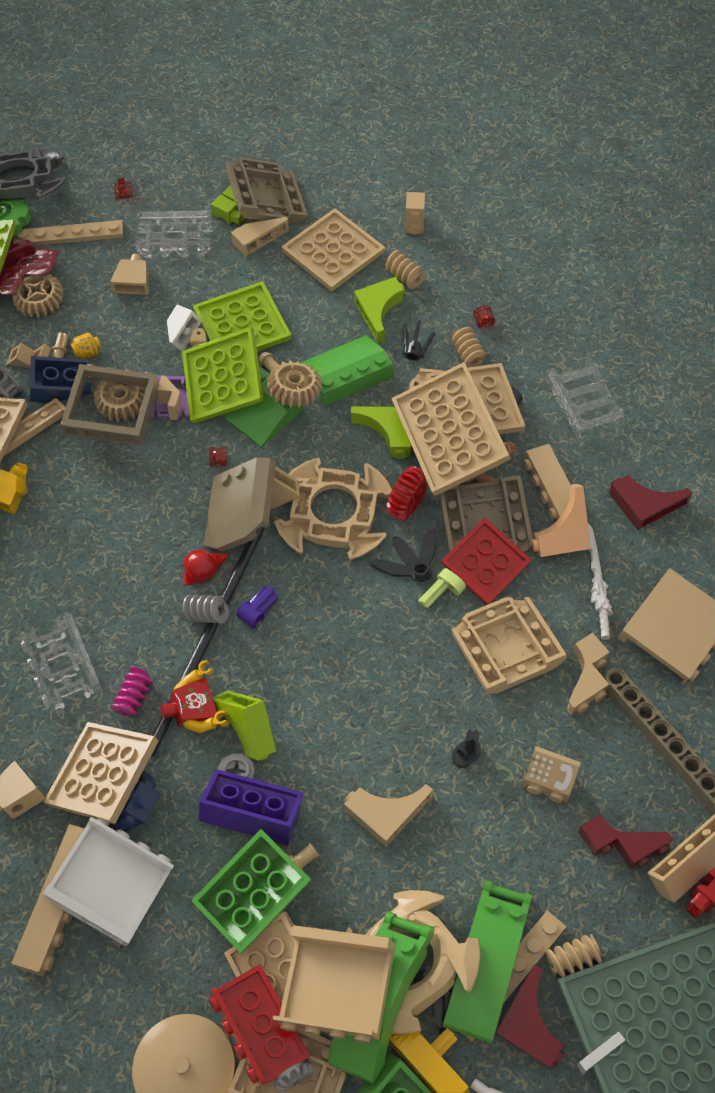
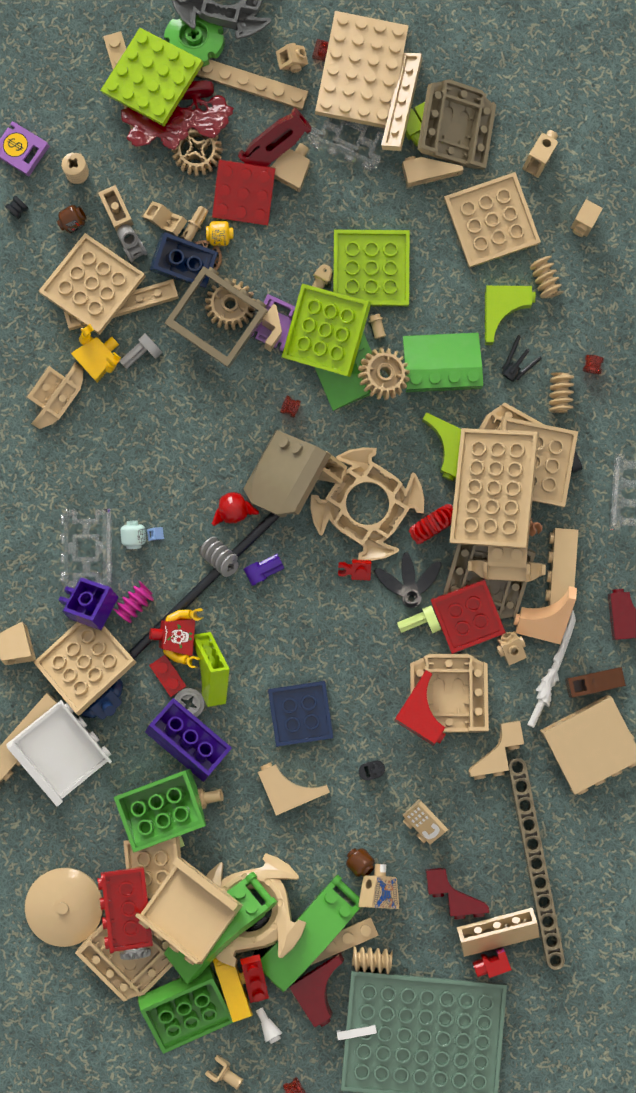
camera: 20 degrees right, 25 degrees up
(51, 459) = (144, 345): none -> light grey piece
(82, 709) = (89, 603): none -> dark purple hinge
(95, 306) = (243, 192): none -> red plate
(96, 199) = (292, 57): none -> tan brick
(105, 630) = (133, 535): none -> light aqua head
(107, 255) = (276, 139): none -> dark red piece
(130, 623) = (156, 533): none -> light blue piece
(163, 186) = (361, 69): none -> tan plate
(181, 325) = (313, 251): white slope -> none
(200, 753) = (168, 675): none -> red plate
(209, 192) = (402, 102): none -> plate
(349, 182) = (541, 153): none -> tan torso
(354, 568) = (358, 569): none -> red plate
(362, 728) = (300, 713): none -> dark blue plate
(450, 1038) = (254, 978): none -> red plate
(487, 668) = (417, 716): none -> red arch
(499, 493) = (507, 565): none -> tan plate
(504, 853) = (360, 862): none -> reddish brown head
(541, 871) = (379, 890): none -> tan torso
(544, 571) = (511, 647): none -> tan brick
(642, 570) = (595, 682): none -> reddish brown slope

